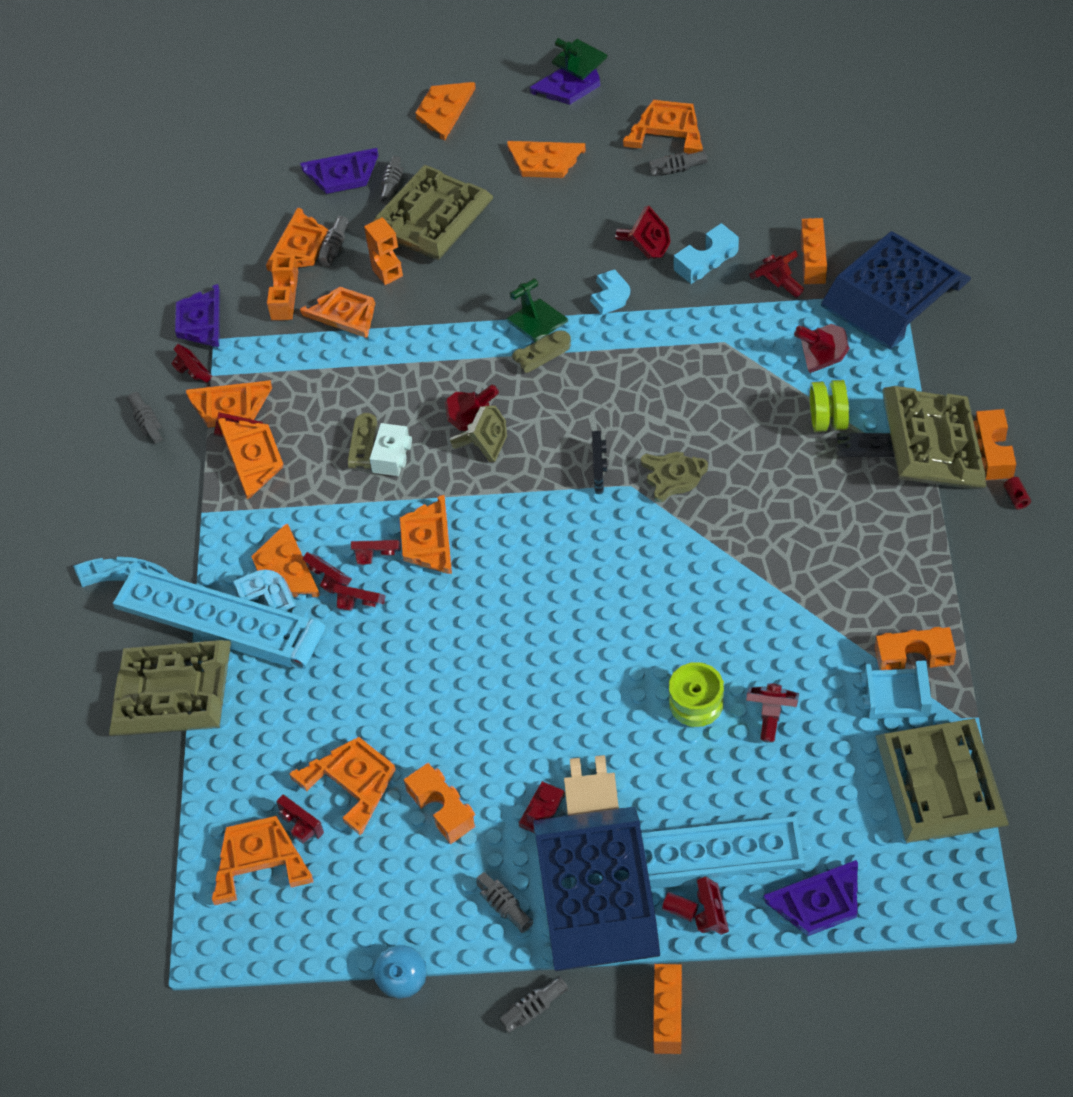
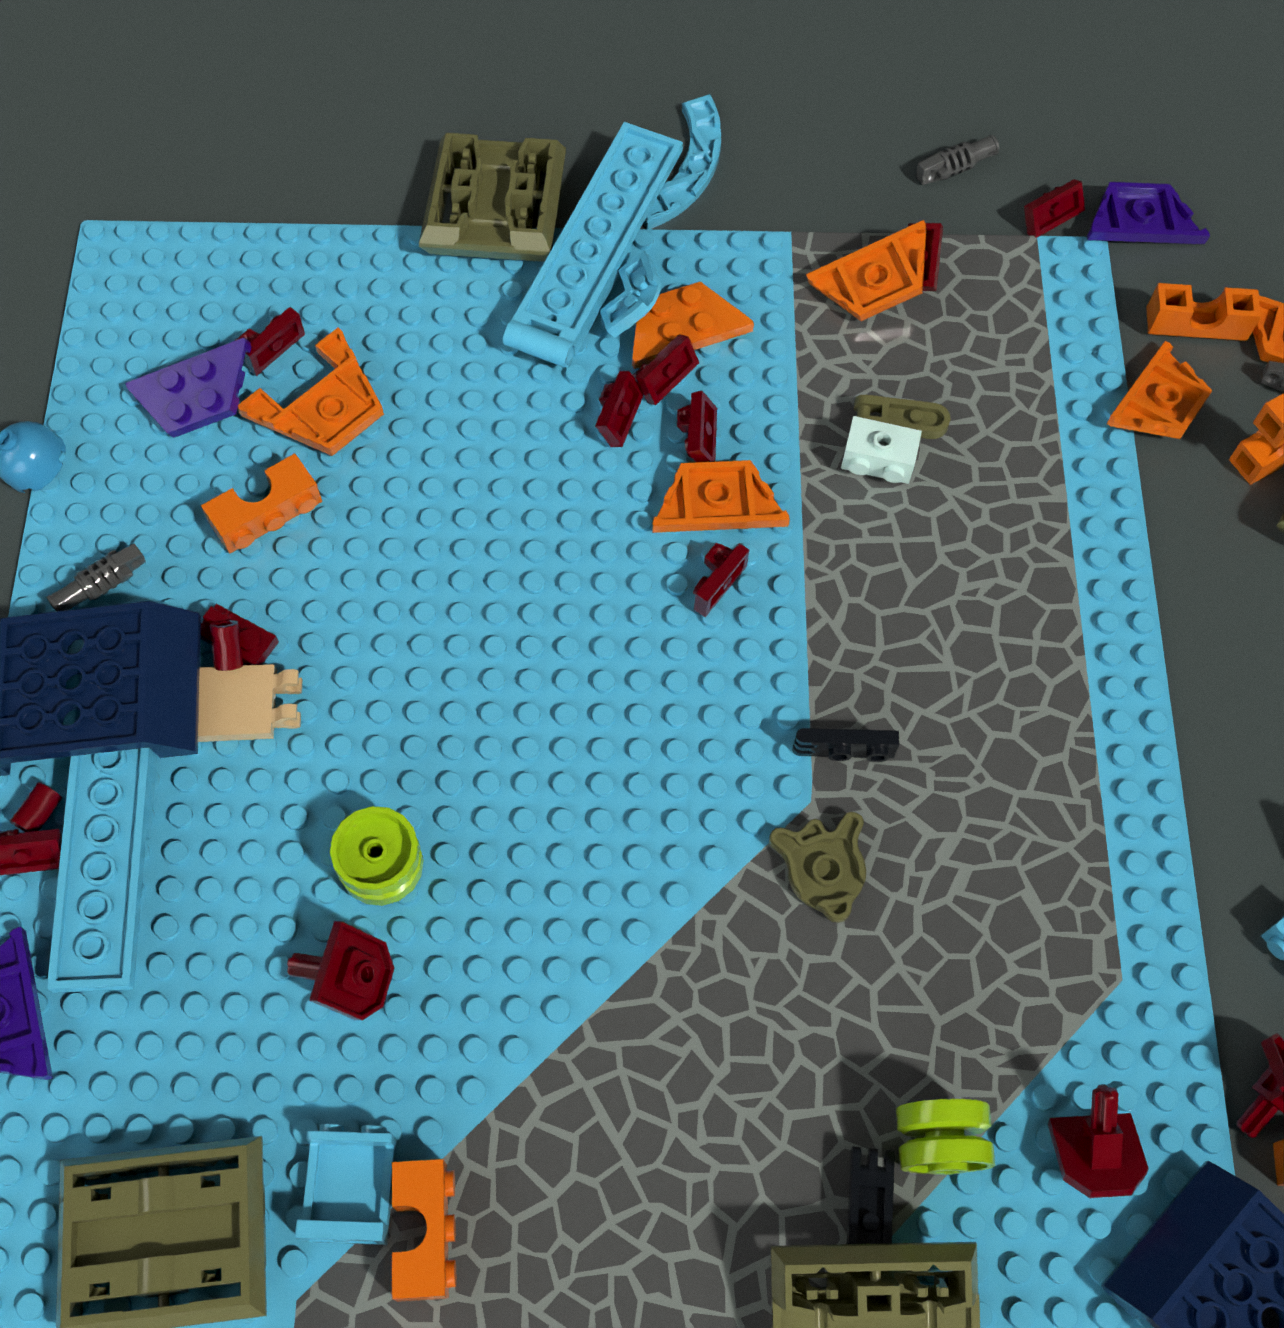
camera: 85 degrees right, 10 degrees up
(236, 399) = (975, 251): orange wing -> none
(254, 848) = (239, 295): orange wing -> none
(345, 860) = (195, 389): none -> dark purple wing
(463, 406) = (952, 559): dark red piece -> none
(486, 432) = (903, 577): olive piece -> none
(493, 532) = (726, 568): none -> dark red hinge
(537, 317) = (1152, 666): dark green plate -> none
(542, 350) = (1086, 676): olive plate -> none
(555, 801) = (226, 645): none -> dark red piece
(615, 292) = (1224, 803): medium azure plate -> none

